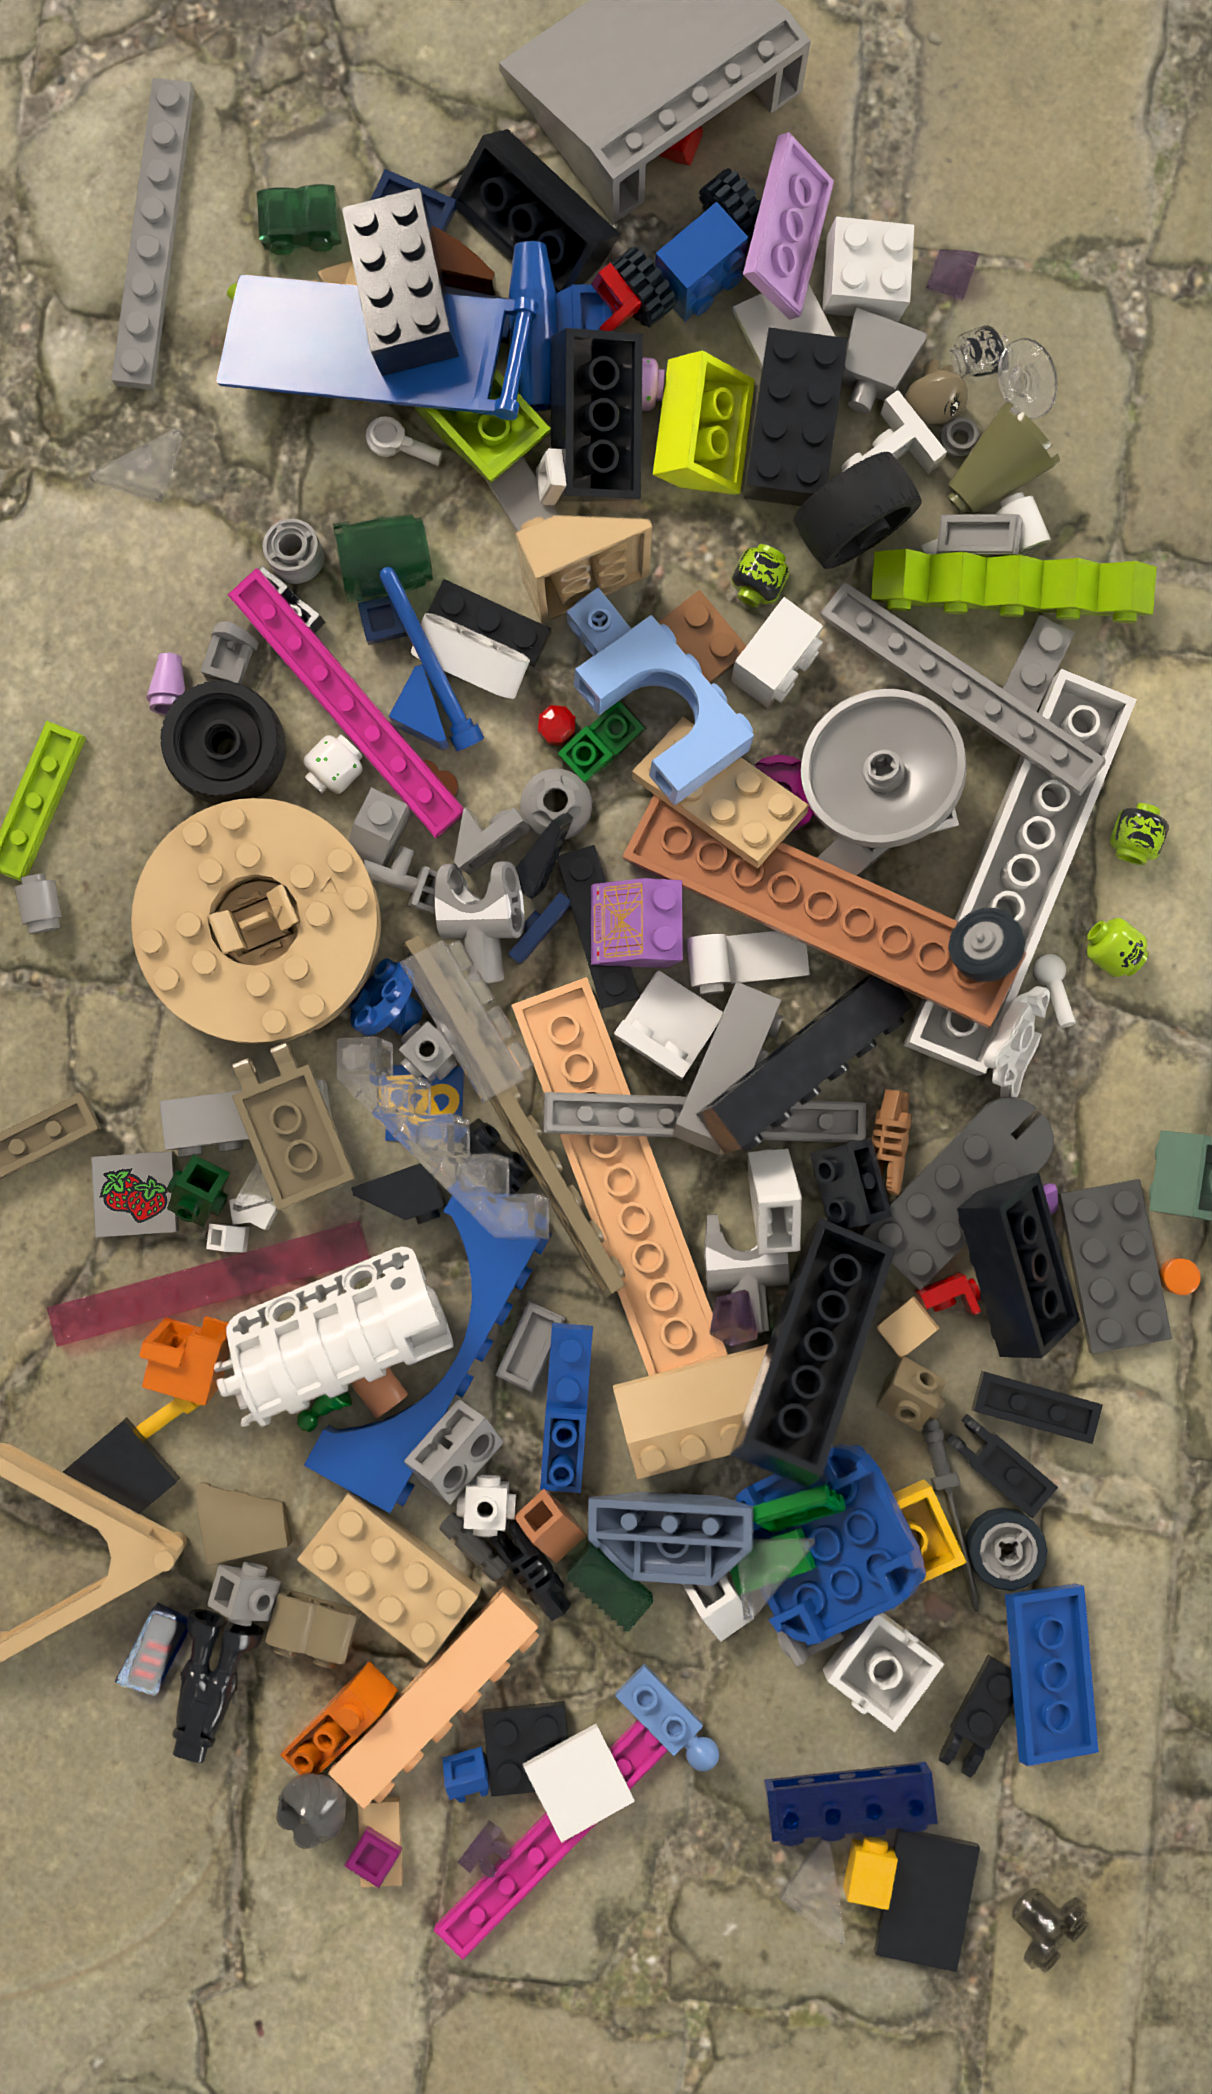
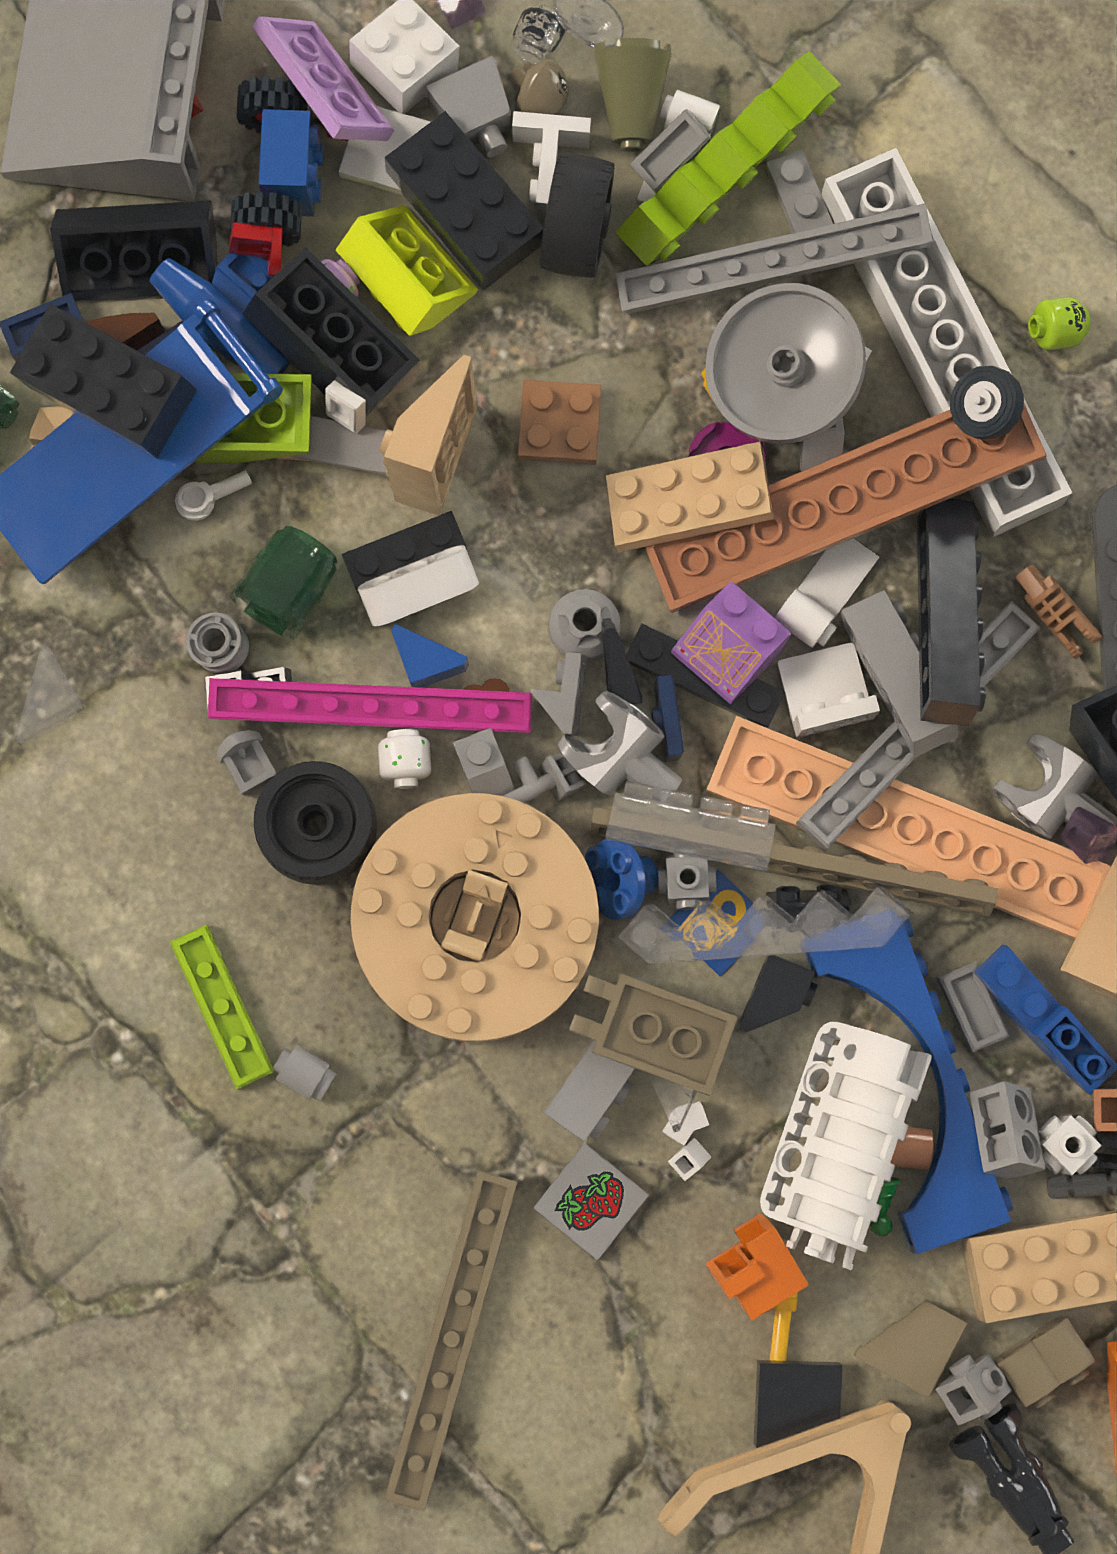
camera: 50 degrees left, 5 degrees down
(154, 1650) = (954, 1502): slope -> none
(166, 683) = (229, 827): lavender cone -> none
(198, 1191) = (636, 1147): dark green brick -> none
(208, 1283) = (708, 1208): clear pink tile -> none
(380, 620) = (329, 625): dark blue plate -> none
(463, 730) = (469, 640): blue piece -> none
(556, 725) = (526, 571): red tile -> none
(598, 610) = (492, 485): light blue head -> none
(602, 741) = (568, 549): green slope -> none
(652, 658) = (549, 453): light blue arch -> none
(760, 575) = (554, 328): head -> none
(774, 1201) = (1031, 724): white slope -> none
(776, 653) = (627, 366): white brick -> none
(851, 1184) = (1064, 663): black brick -> none
(959, 426) = (589, 92): light grey plate -> none
(1016, 1041) = (1066, 451): white tile -> none
(1050, 972) = (1035, 388): white bar -> none
(1139, 834) = (990, 235): lime head -> none

